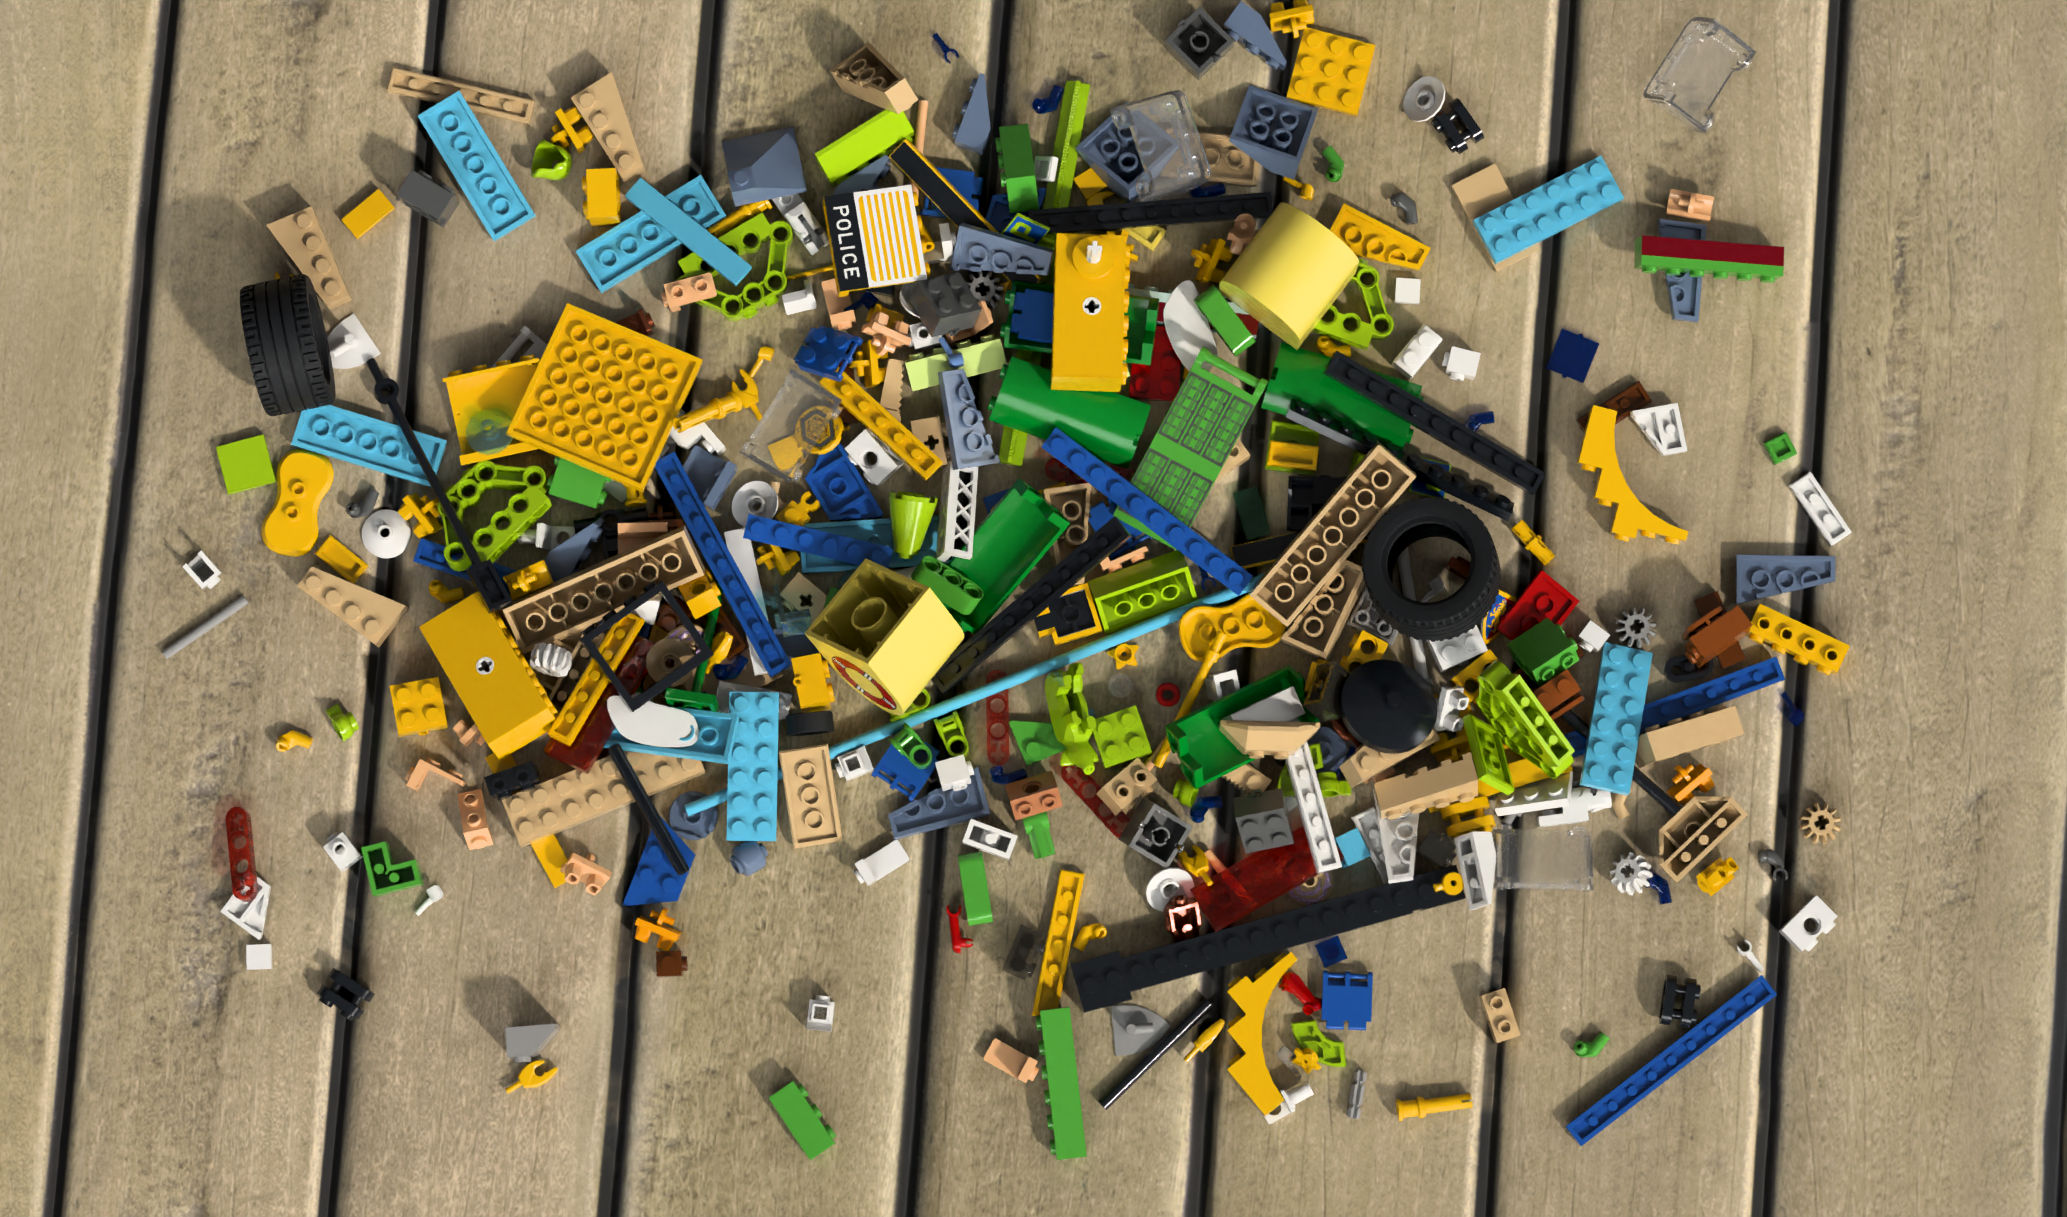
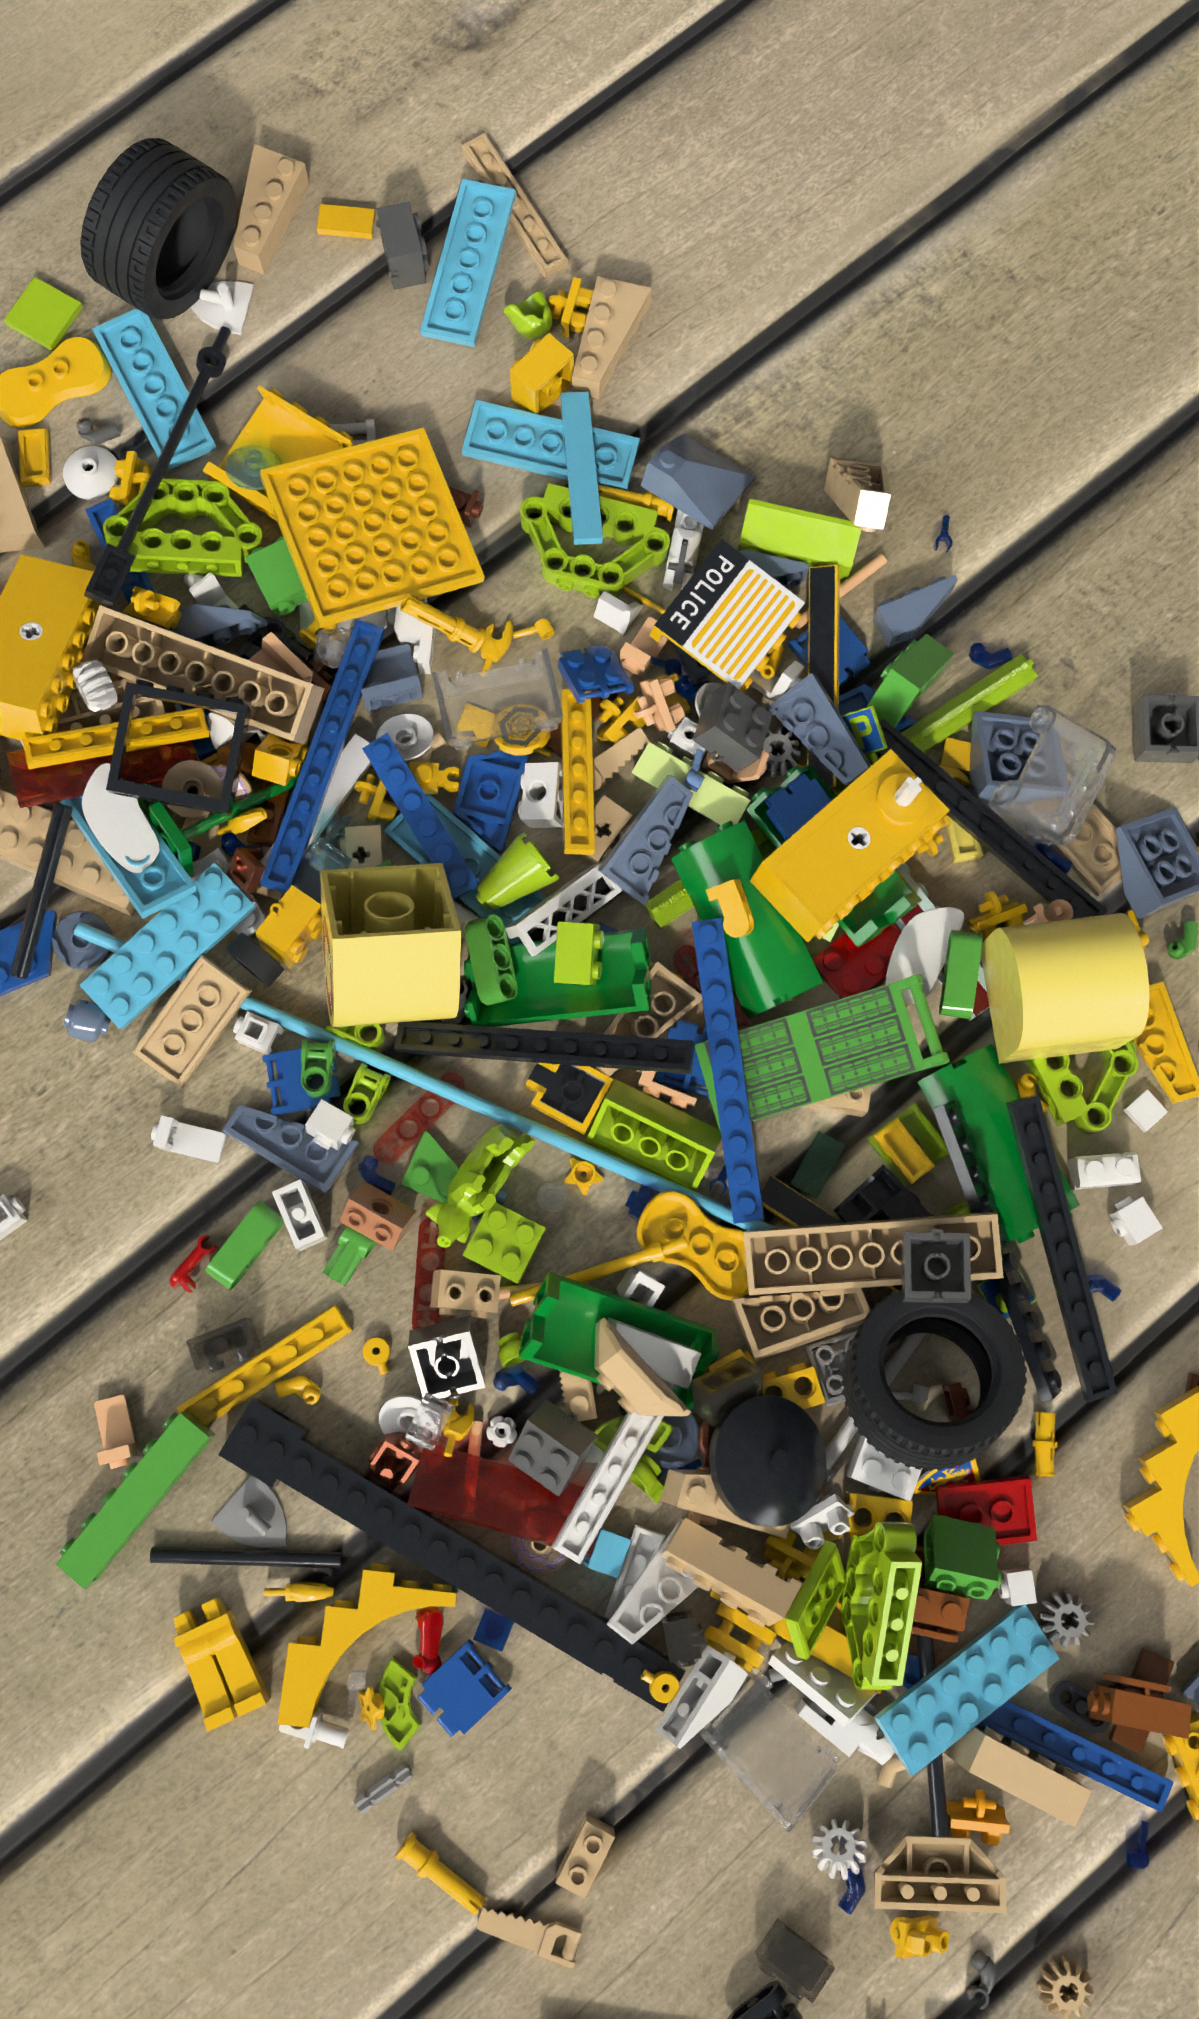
camera: 40 degrees right, 5 degrees down
(657, 494) = (331, 646): none -> clear bracket
(688, 291) = (531, 513): light nougat bracket -> none
(752, 676) = (246, 869): none -> copper bracket
(893, 304) = (686, 688): none -> clear blue arm
(995, 531) = (578, 953): none -> lime brick
(1045, 168) = (930, 705): white tile -> none
(1057, 414) = (735, 907): none -> yellow leg
(1117, 872) = (380, 1359): none -> yellow piece
(1168, 702) = (588, 1238): red plate -> none
(1171, 638) = (637, 1202): none -> clear blue plate
(1181, 875) = (429, 1421): none -> clear bracket
(1181, 1124) = (219, 1664): none -> yellow hips
(1219, 842) = (493, 1431): none -> white plate
(1373, 509) = (936, 1267): none -> dark grey brick
(1512, 1087) = (531, 1934): none -> tan piece
(1591, 1048) = (639, 1976): bright green arm -> none
(1662, 955) = (794, 1961): none -> clear smoke brick

